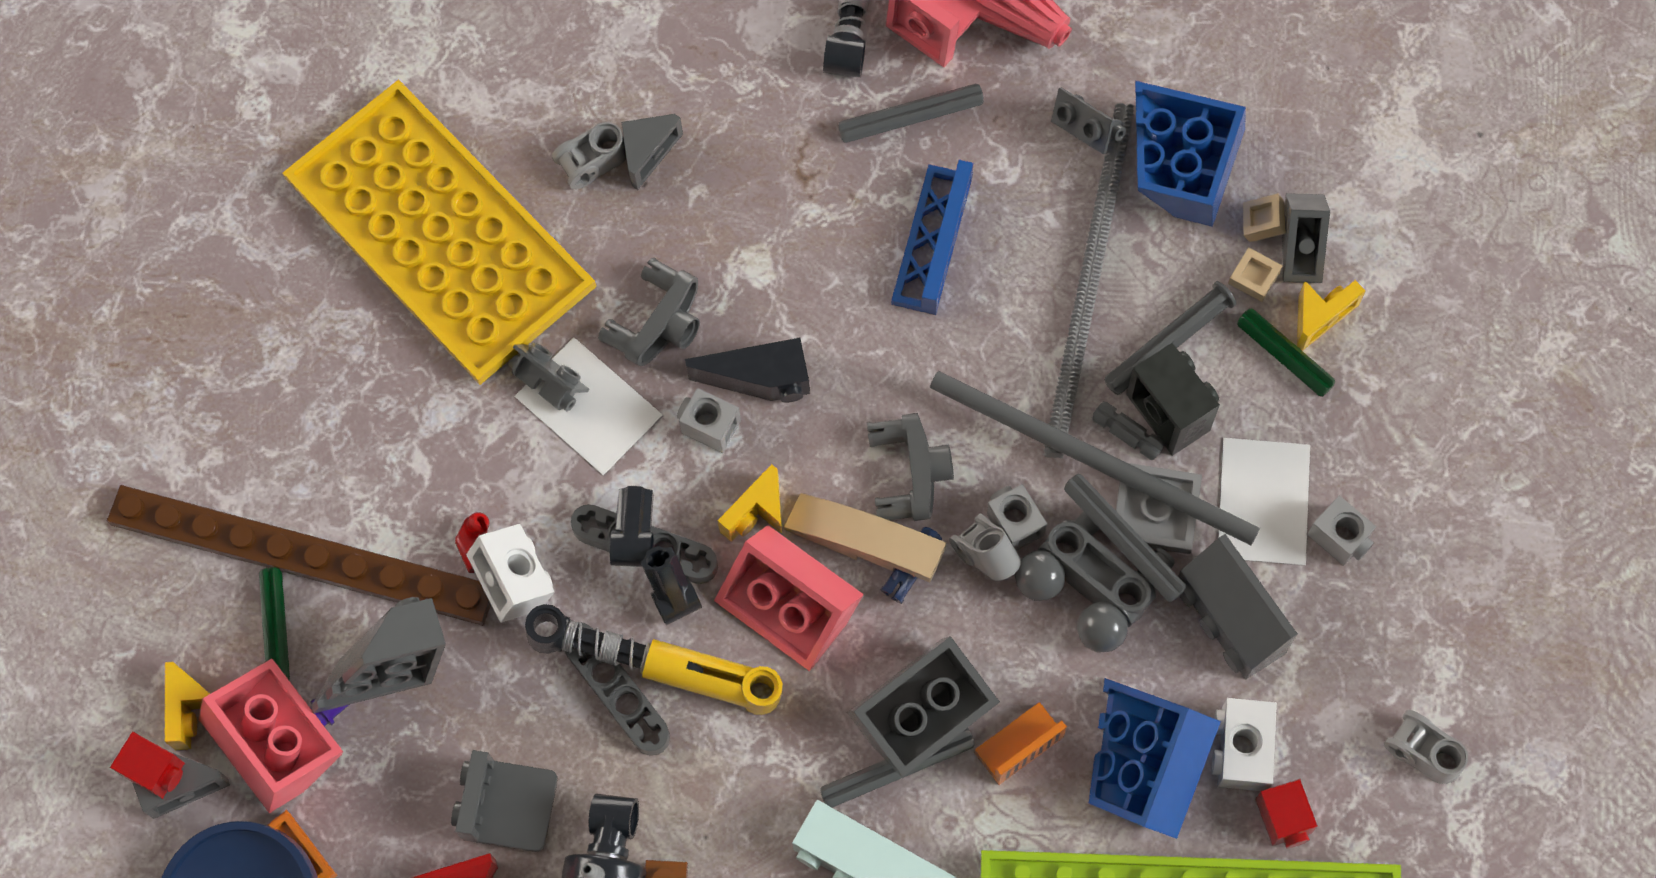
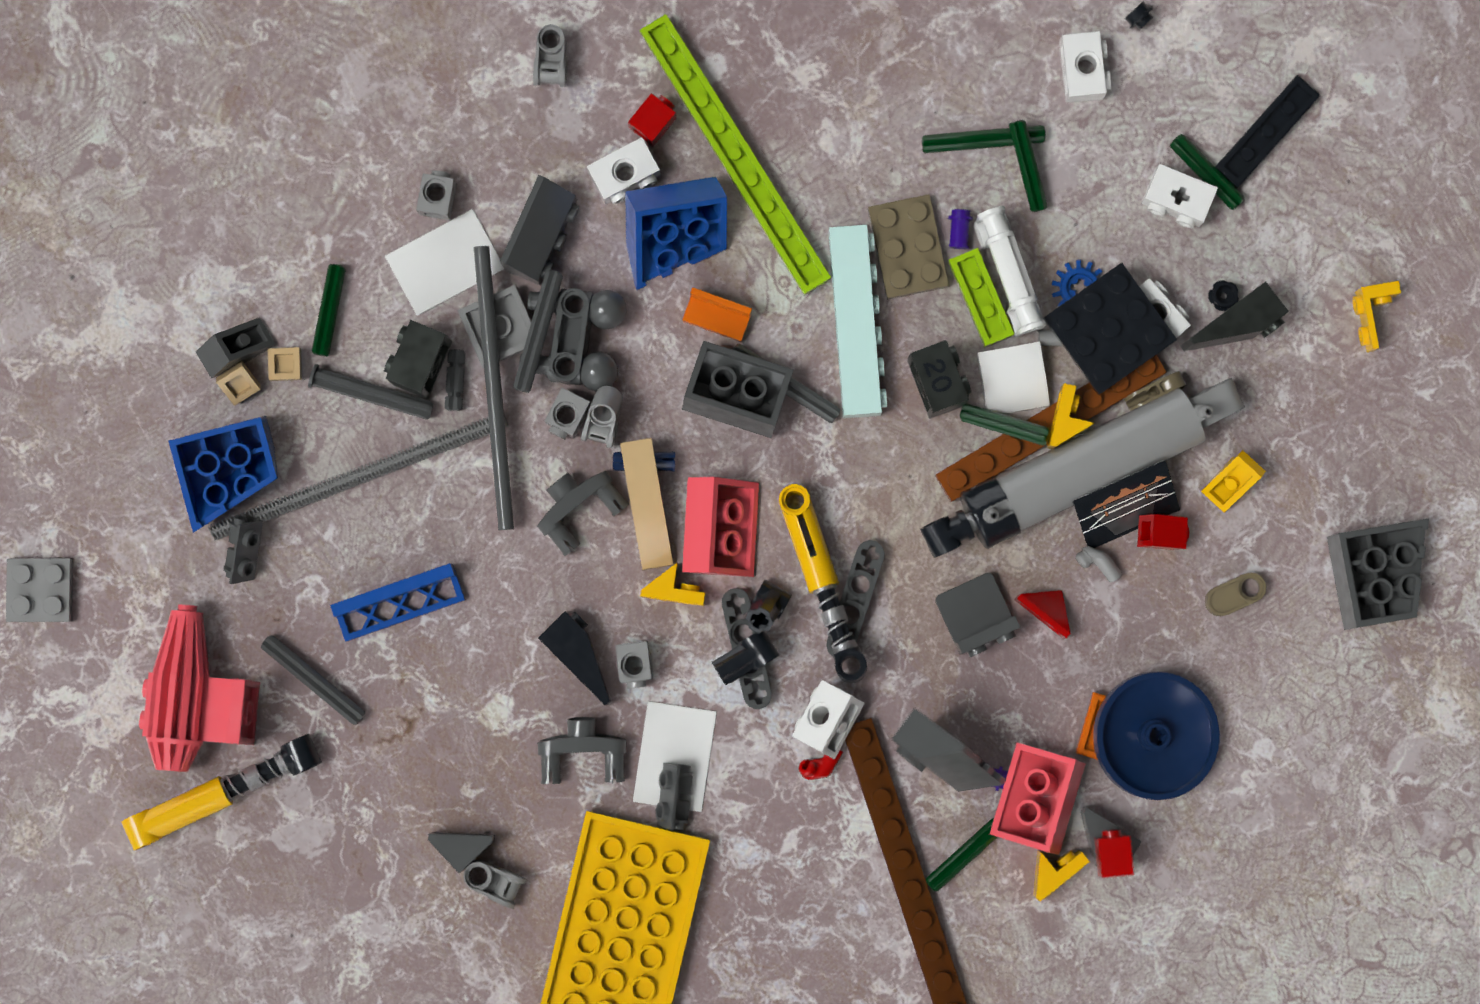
camera: 125 degrees left, 15 degrees up
(1320, 315) = (291, 303): yellow slope -> none

